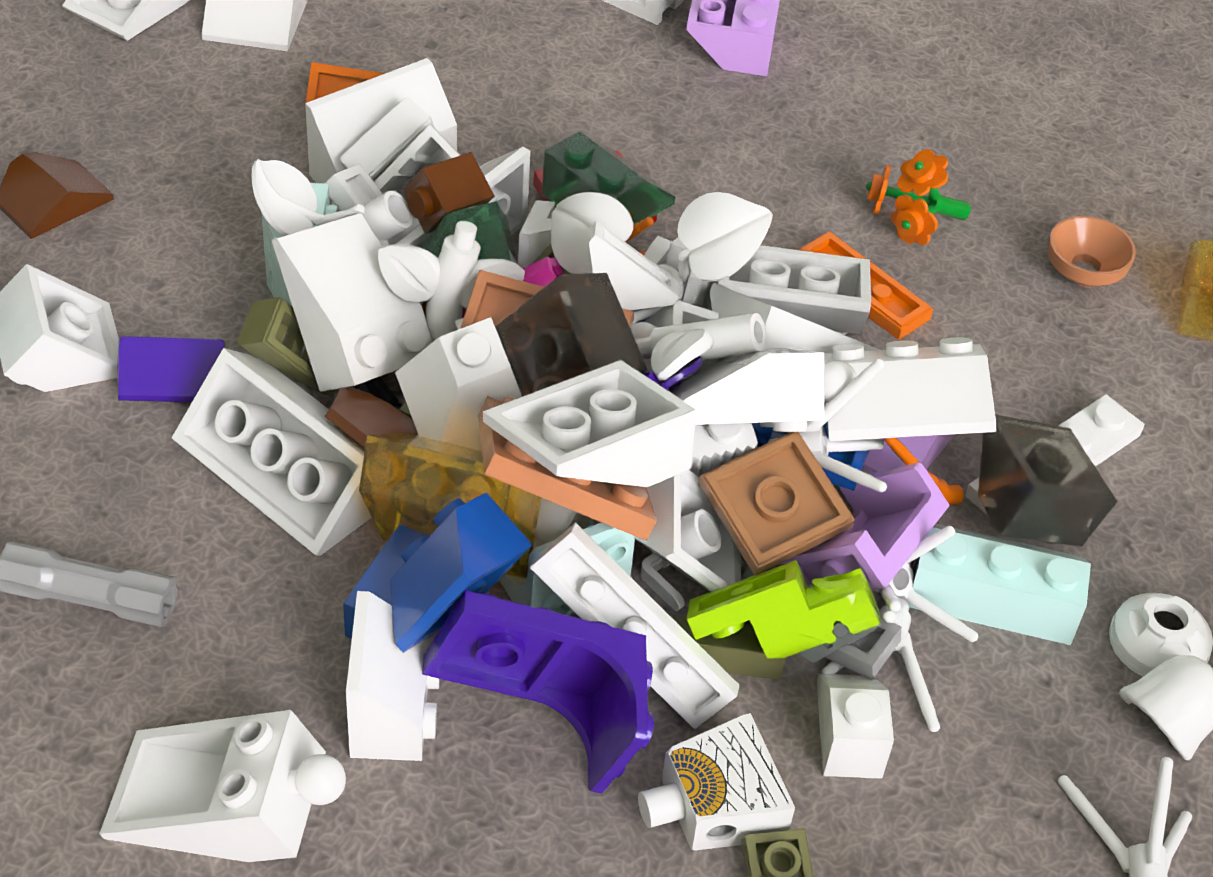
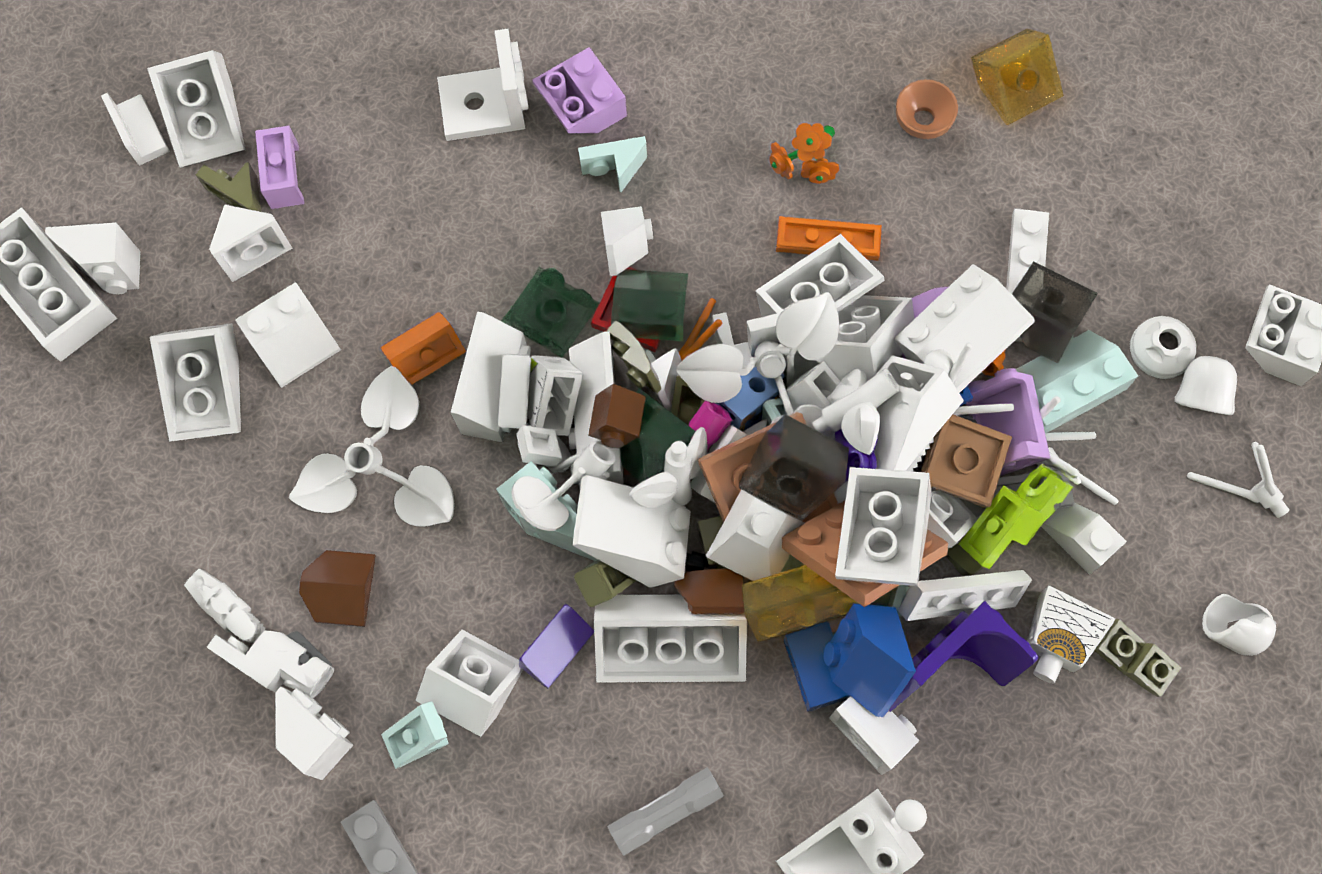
camera: 35 degrees left, 25 degrees up
(213, 187) = (327, 484): none -> white plant
(504, 124) = (550, 311): none -> clear green slope
(530, 194) = (633, 355): none -> slope
(632, 275) = (768, 385): white slope -> none
(643, 130) = (625, 237): none -> white slope
(715, 85) = (622, 155): none -> light aqua slope

